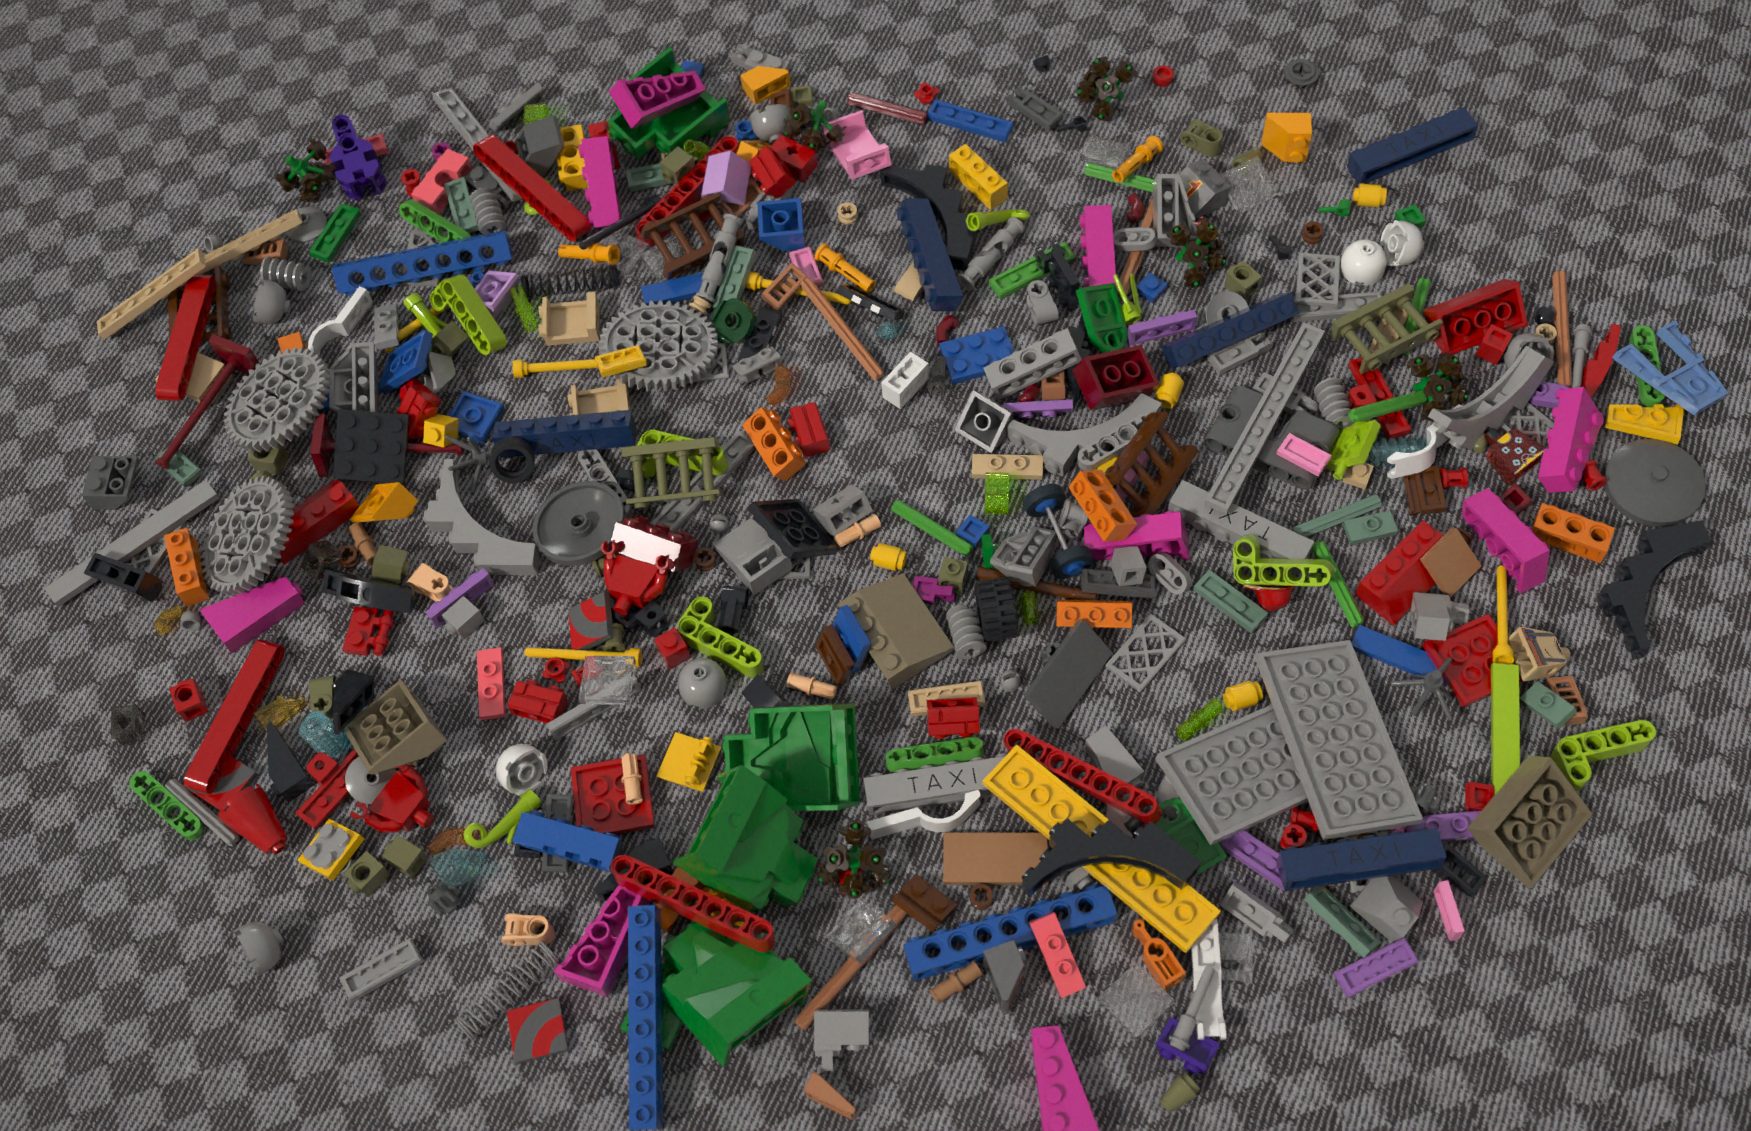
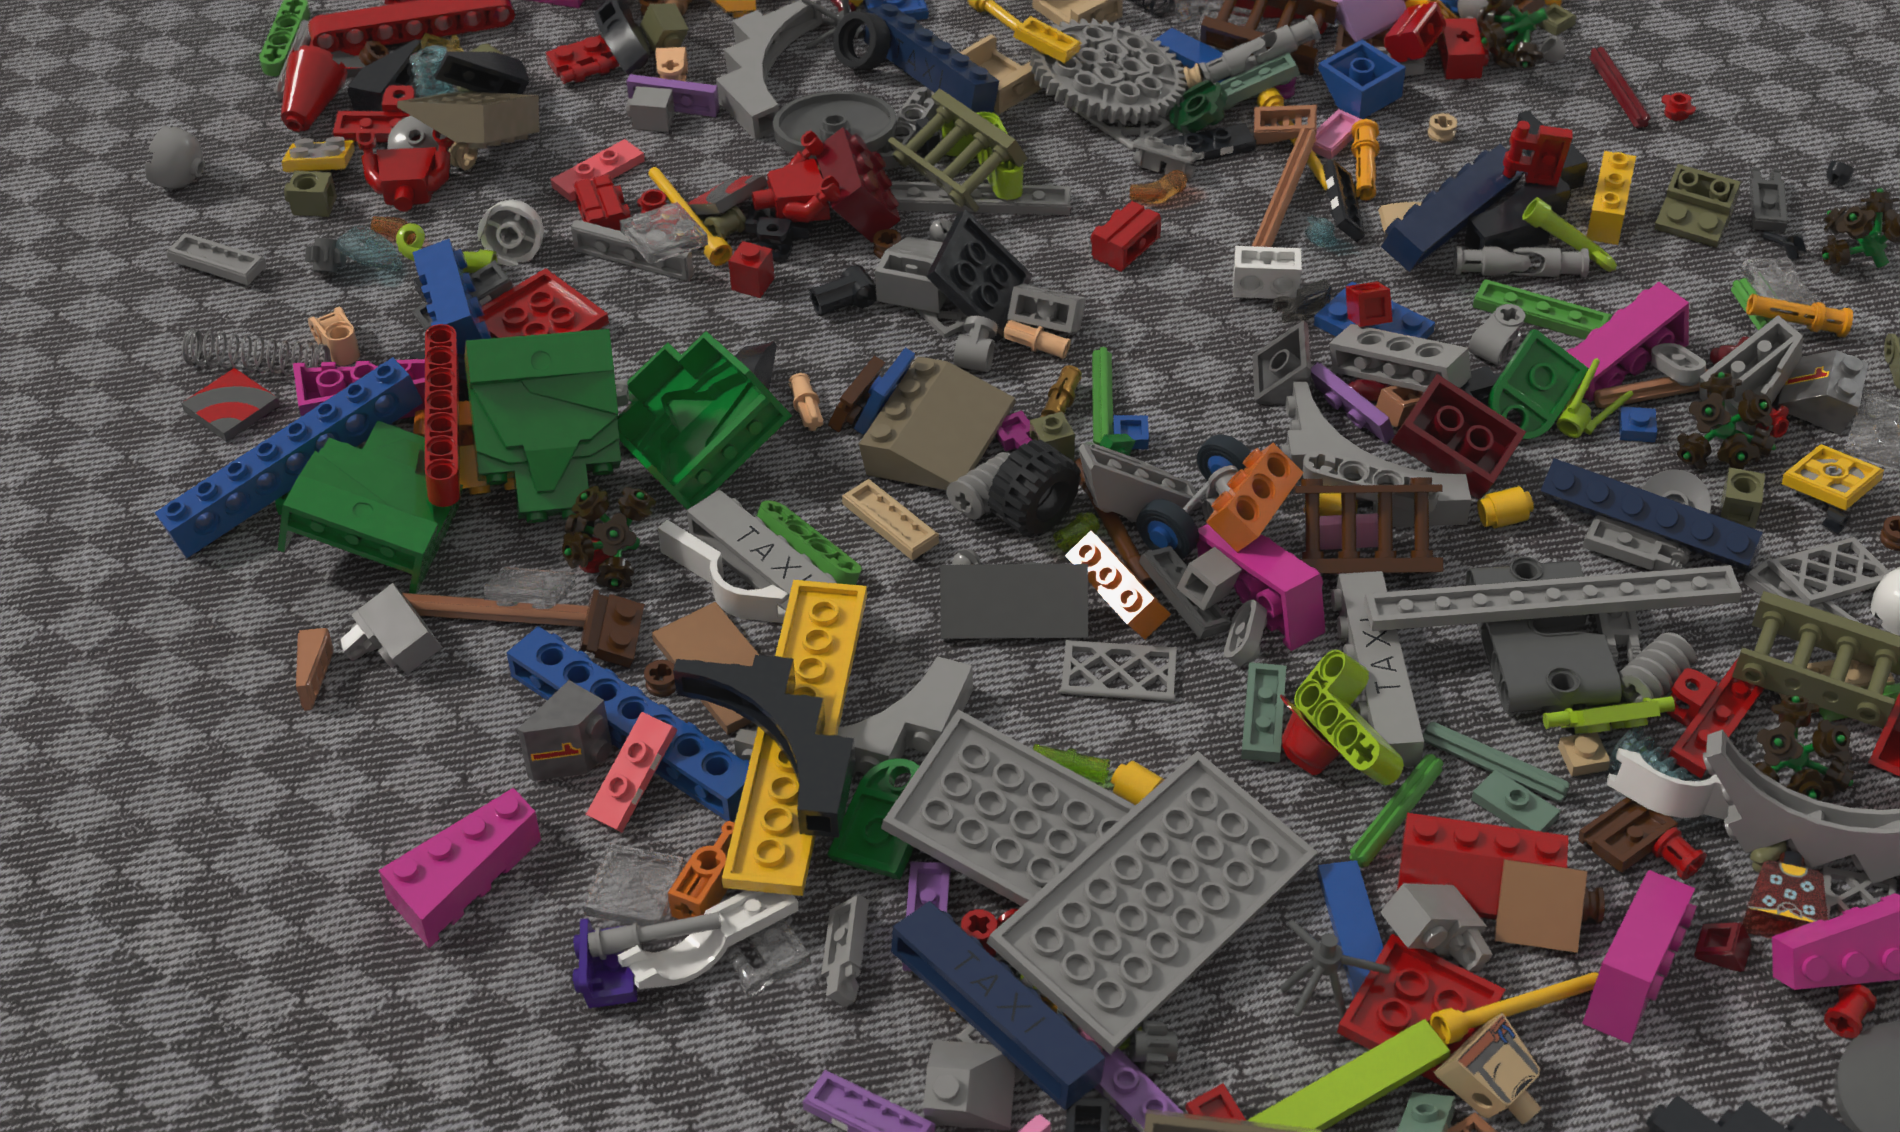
camera: 50 degrees right, 15 degrees down
(248, 758) = (372, 52): none -> reddish brown bush
(404, 856) = (350, 207): olive brick -> none
(631, 779) = (565, 312): light nougat axle -> none
(689, 761) = (633, 350): yellow hinge -> none
(702, 683) = (734, 314): light grey cylinder -> none
(722, 643) = (791, 278): lime beam -> none
(765, 430) = (1076, 215): orange brick -> none
(843, 568) = (976, 350): none -> light grey piece
(858, 150) = (1535, 87): bright pink panel -> none
(888, 557) = (1026, 379): yellow brick -> none
(915, 547) = (1063, 392): none -> pearl gold pin
(942, 190) = (1547, 155): none -> red plate
(943, 327) = (1387, 274): dark red arm -> none
(952, 717) = (865, 529): red brick -> none
(955, 982) = (518, 702): medium nougat pin -> none
(970, 121) = (1677, 143): blue tile -> none
(981, 349) = (1369, 304): none -> red brick
(996, 493) = (1198, 423): clear neon green beam -> none
(1017, 465) = (1245, 417): tan plate -> none
(1018, 143) = (1698, 205): none -> olive brick
(1060, 275) = (1558, 311): black plate -> none
(1091, 782) = (880, 675): red beam -> none
(1161, 327) = (1576, 449): medium lavender plate -> none
(1179, 1093) = (543, 989): olive cone -> none
(1259, 232) = (1832, 477): none -> yellow piece
(1304, 454) = (1539, 667): bright pink tile -> none
(1342, 921) = (905, 1044): sand green plate -> none
(1387, 406) = (1698, 714): bright green axle -> none
(1577, 543) = (1730, 1046): orange brick -> none

